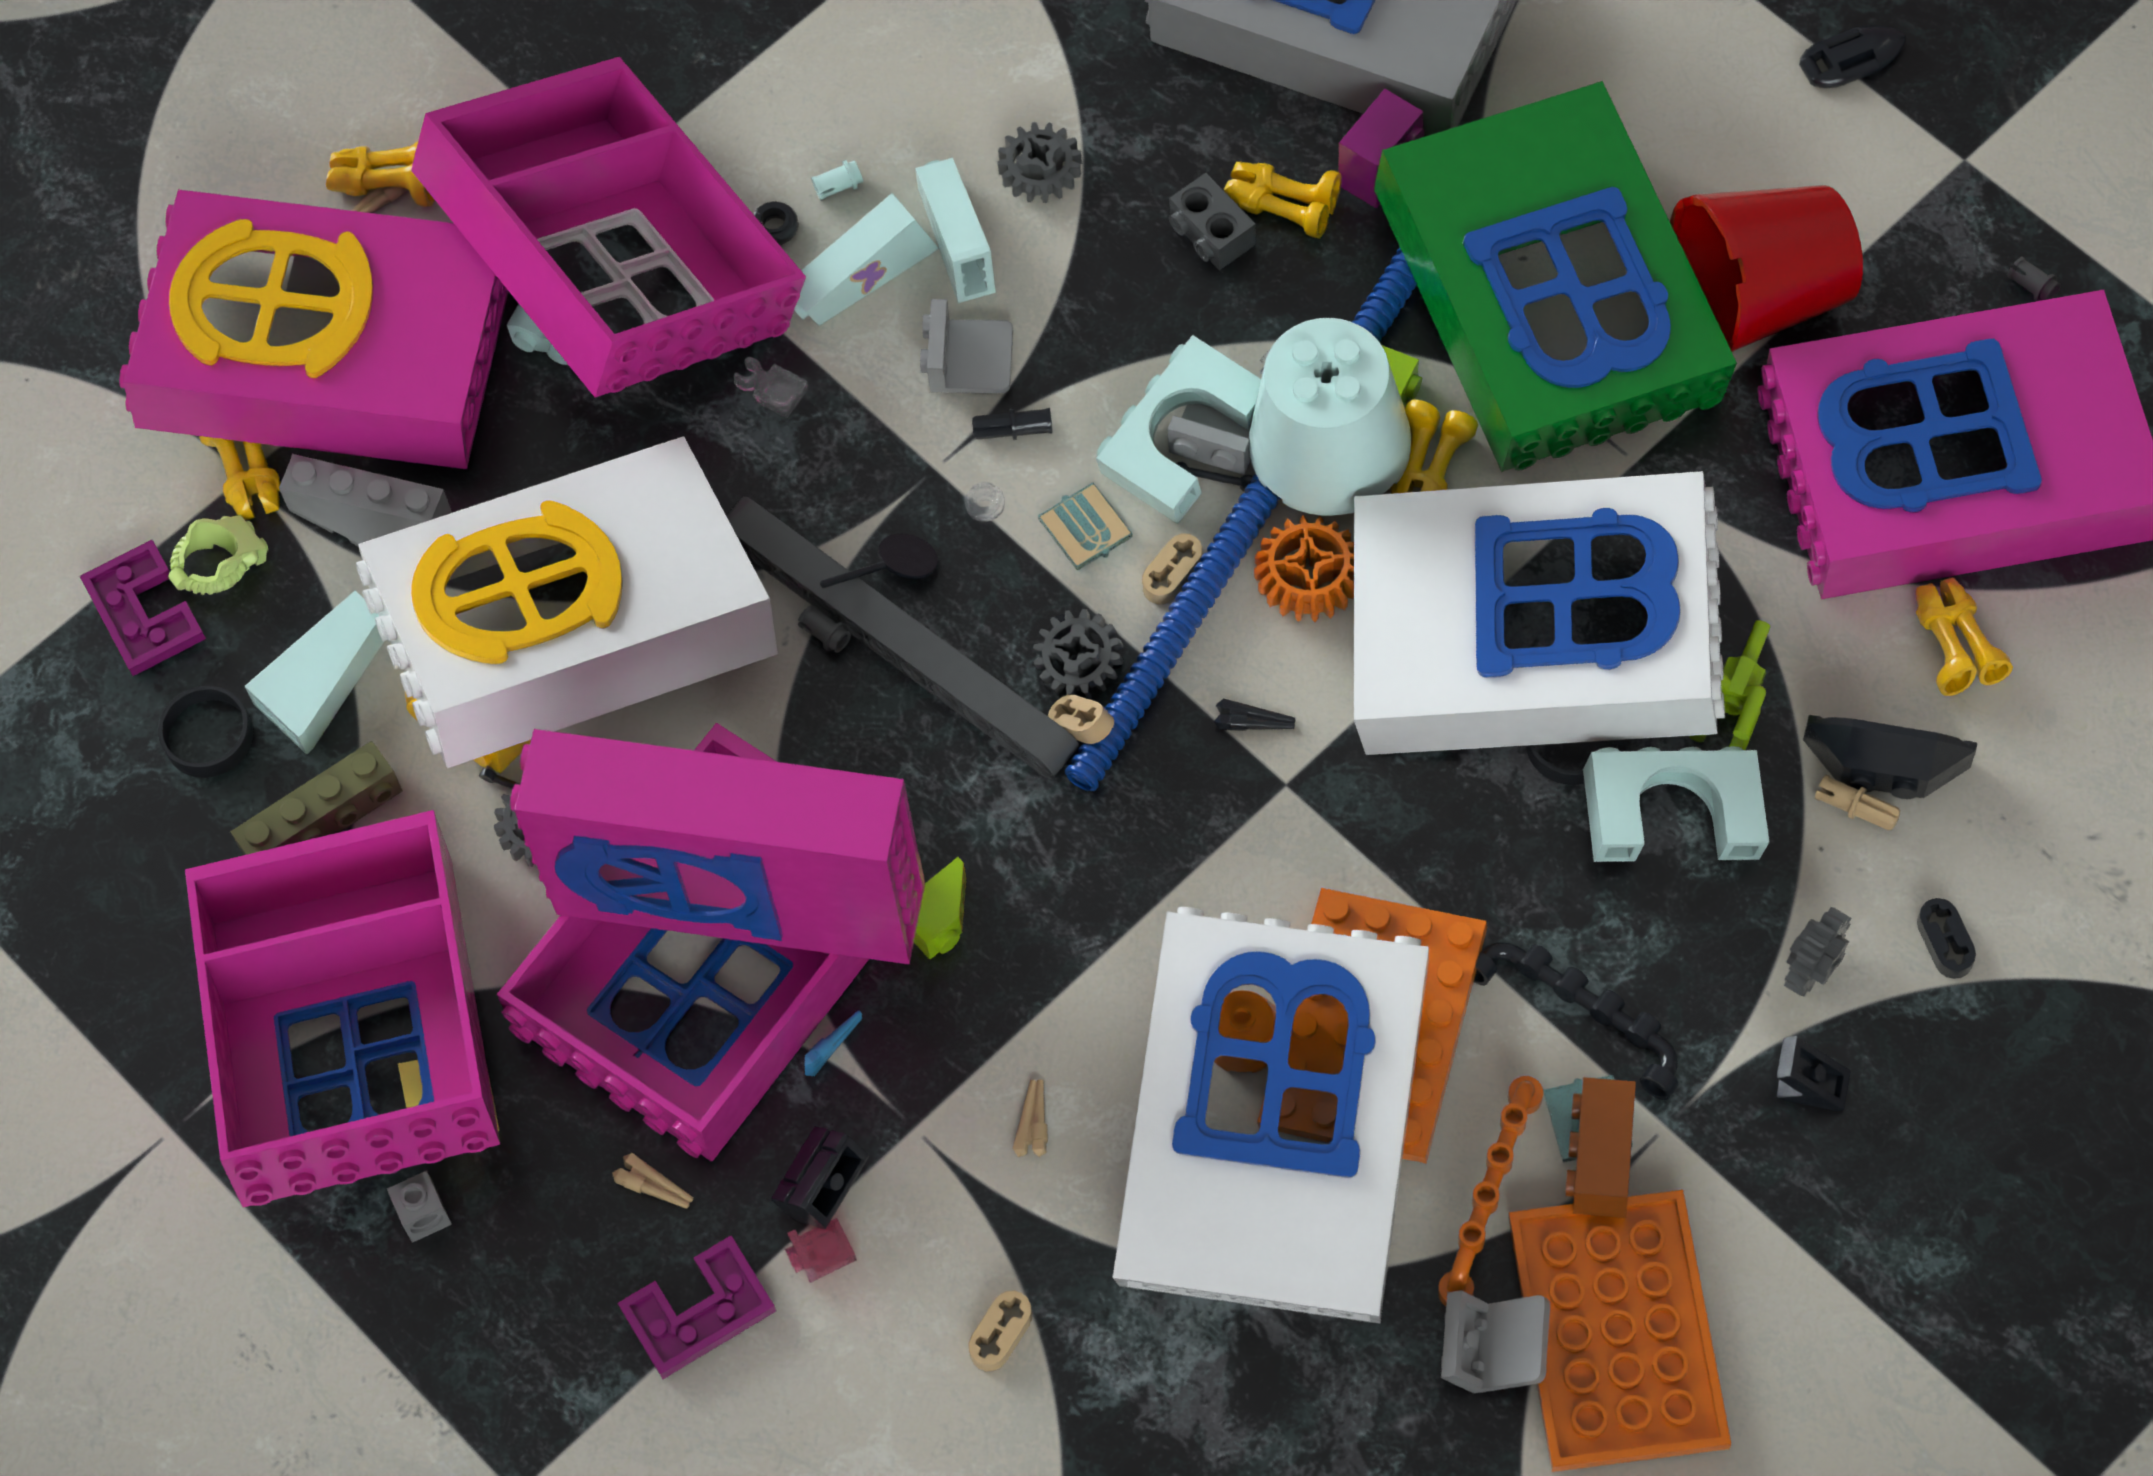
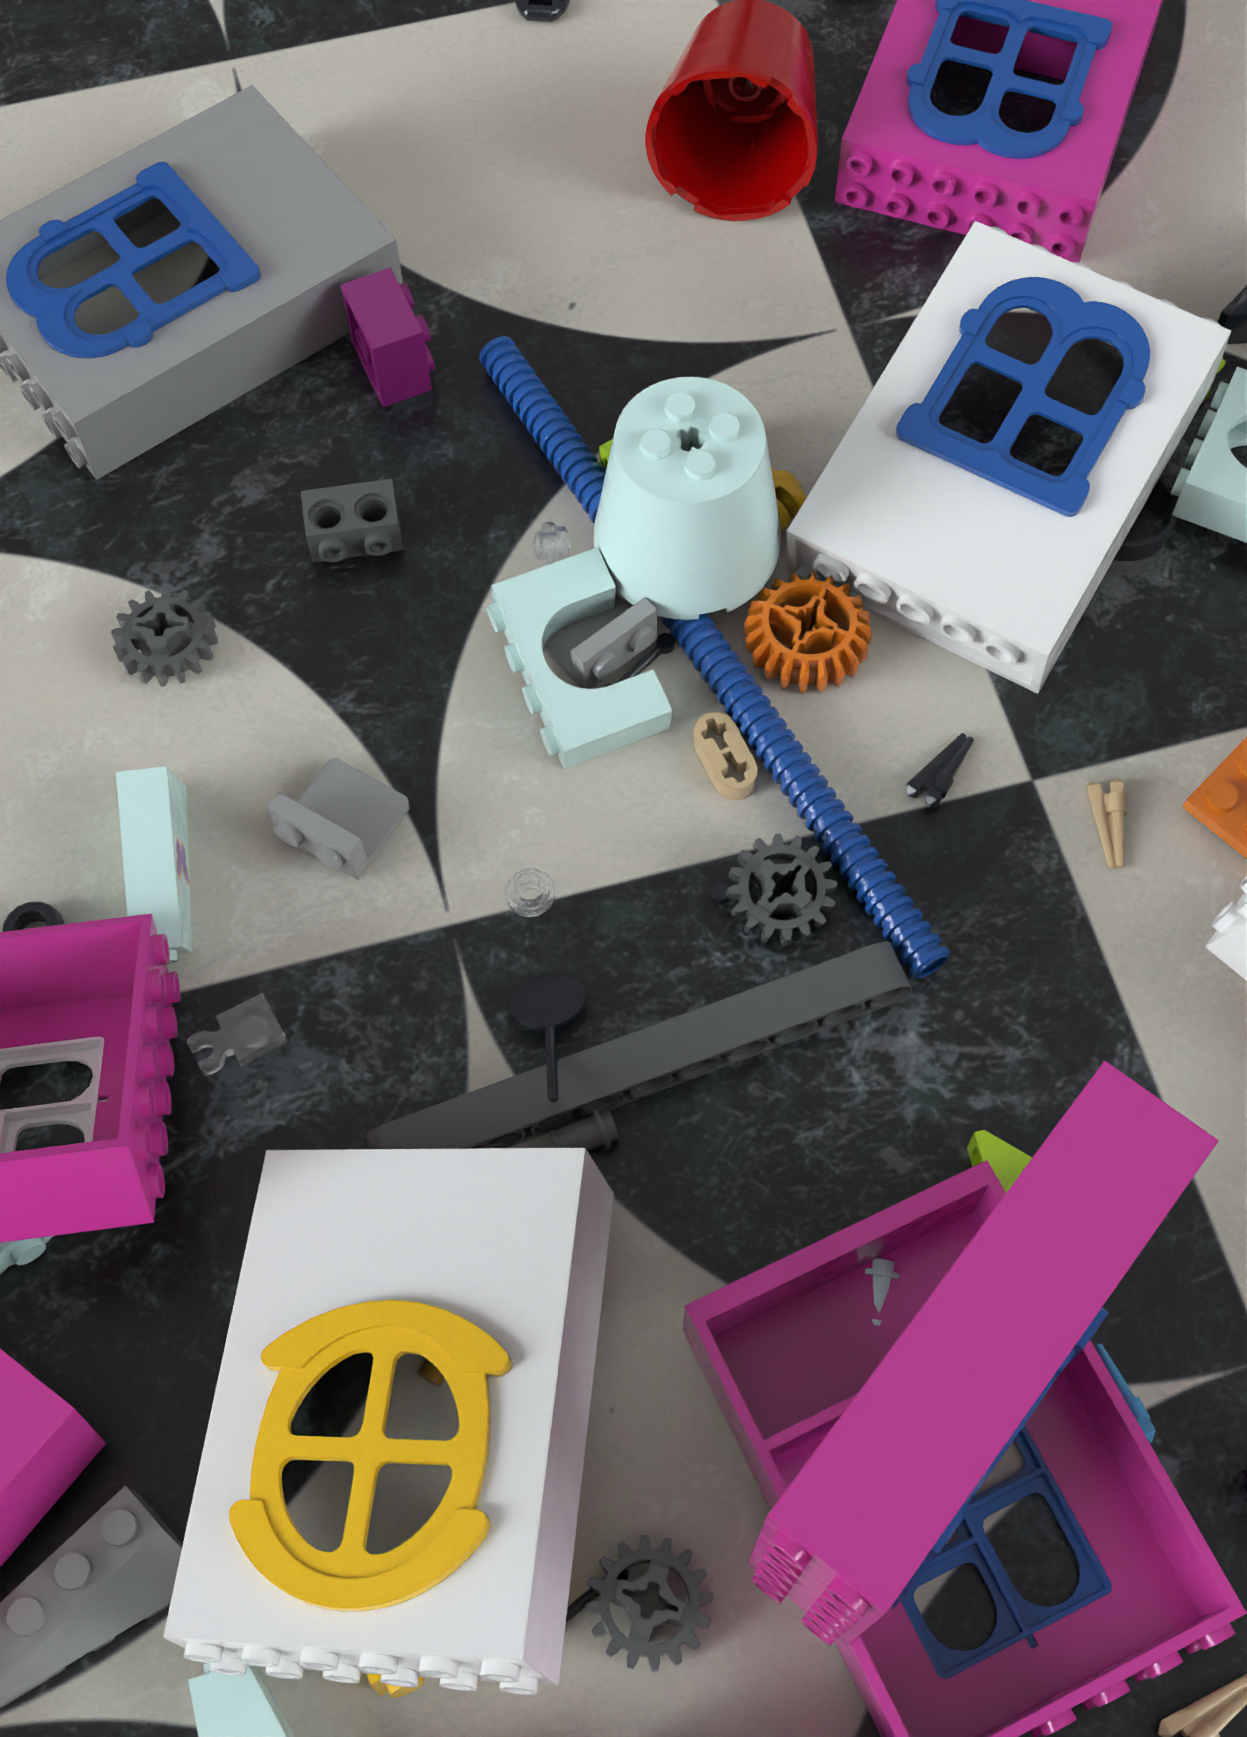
camera: 65 degrees left, 0 degrees up
(837, 179) = (31, 838): light aqua pin -> none
(956, 230) = (203, 747): light aqua slope -> none
(1012, 424) = (455, 817): black axle -> none
(1082, 718) = (861, 914): tan beam -> none
(1085, 526) = (619, 813): piece -> none
(1256, 183) = (340, 461): yellow piece -> none
(1285, 846) = (1109, 818): none -> tan piece
(1526, 182) = (531, 242): green panel -> none
(1959, 671) = (1159, 175): yellow piece -> none

